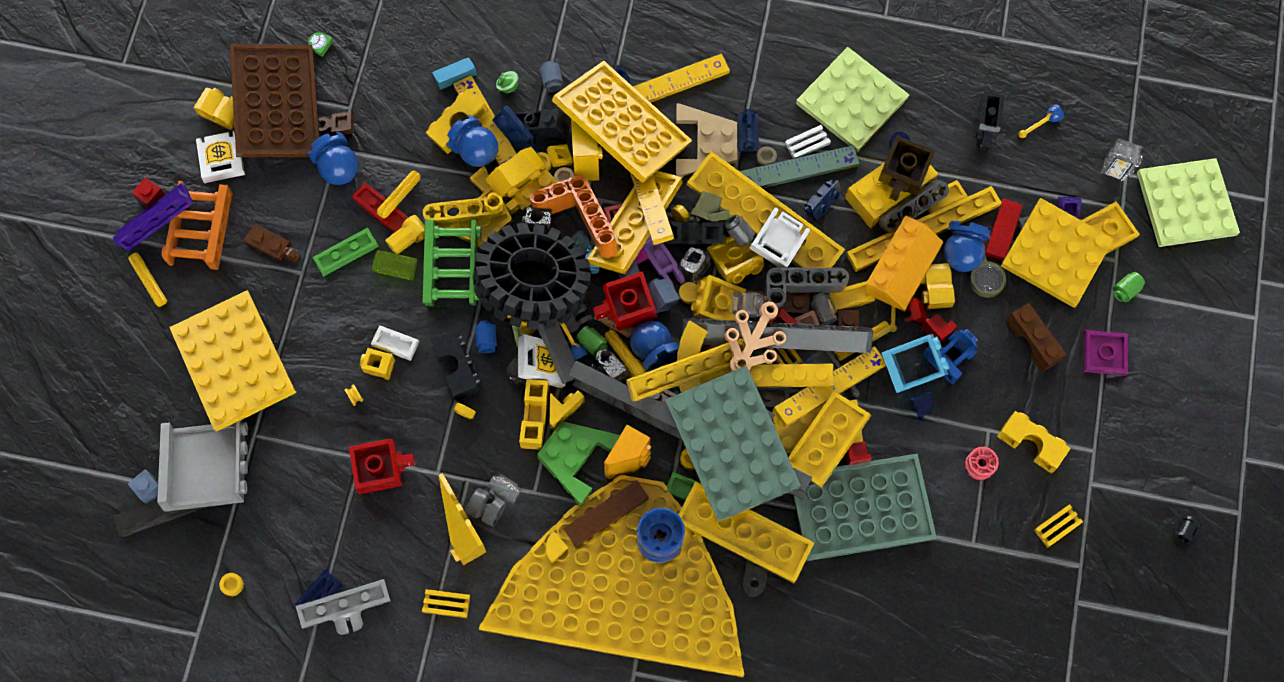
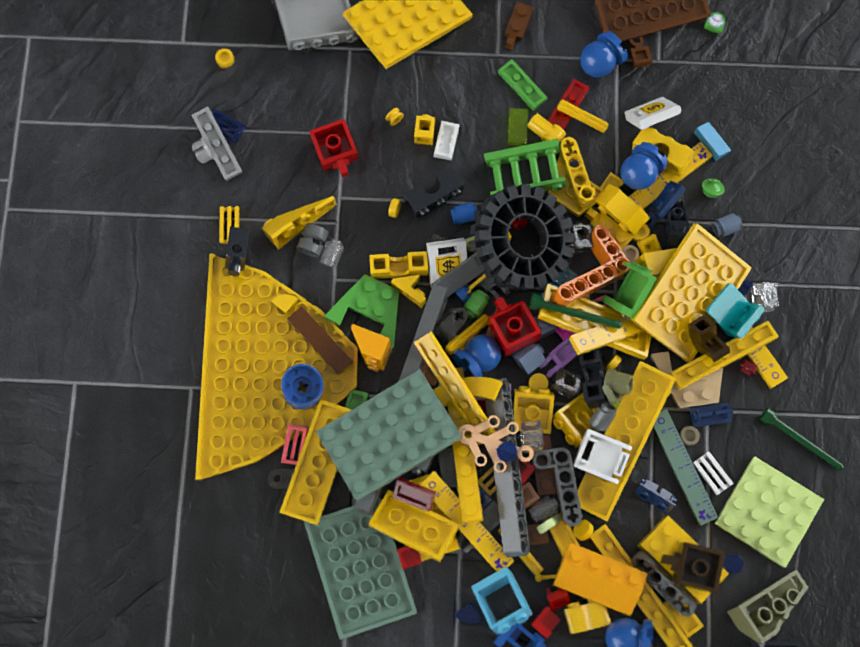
camera: 85 degrees right, 5 degrees up
(410, 117) = (652, 112): none -> white container
(485, 592) = (236, 250): none -> black torso
(609, 269) = (537, 303): none -> dark green piece
(610, 176) = (632, 291): none -> bright green panel
(635, 56) = (765, 295): none -> clear brick
(649, 85) = (734, 312): none -> teal bracket
(673, 118) = (705, 339): none -> dark brown brick
(690, 105) = (739, 348): none -> yellow tile
(705, 87) = (748, 368): none -> dark red plate
(714, 565) = (297, 428): none -> coral tile
(759, 78) = (770, 417): none -> dark green piece
(765, 326) = (507, 451): none -> clear blue tile
(797, 431) = (414, 494): none -> tile
(840, 304) = (549, 523): none -> yellowish green tile
(854, 273) = (583, 530): none -> yellow tile
(949, 120) = (768, 609): none -> olive wedge

